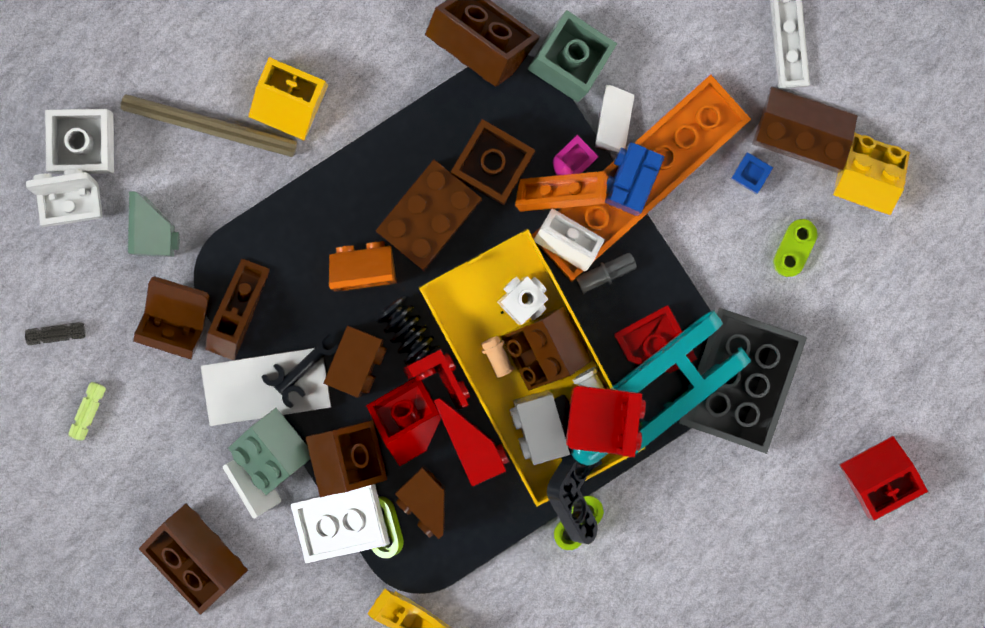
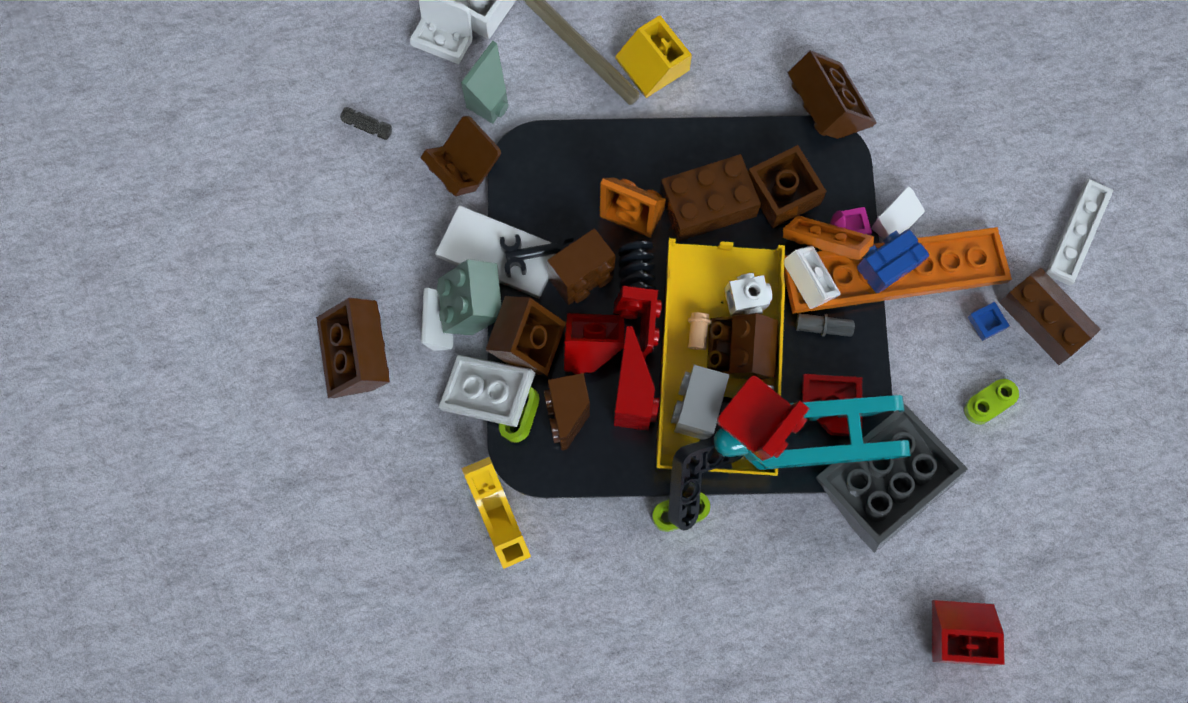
camera: 30 degrees right, 15 degrees down
(87, 411) = (349, 192): yellowish green axle -> none
(236, 309) = (513, 180): reddish brown slope -> none
(572, 56) = (894, 148): sand green brick -> none
(873, 174) = (1090, 379): yellow slope -> none

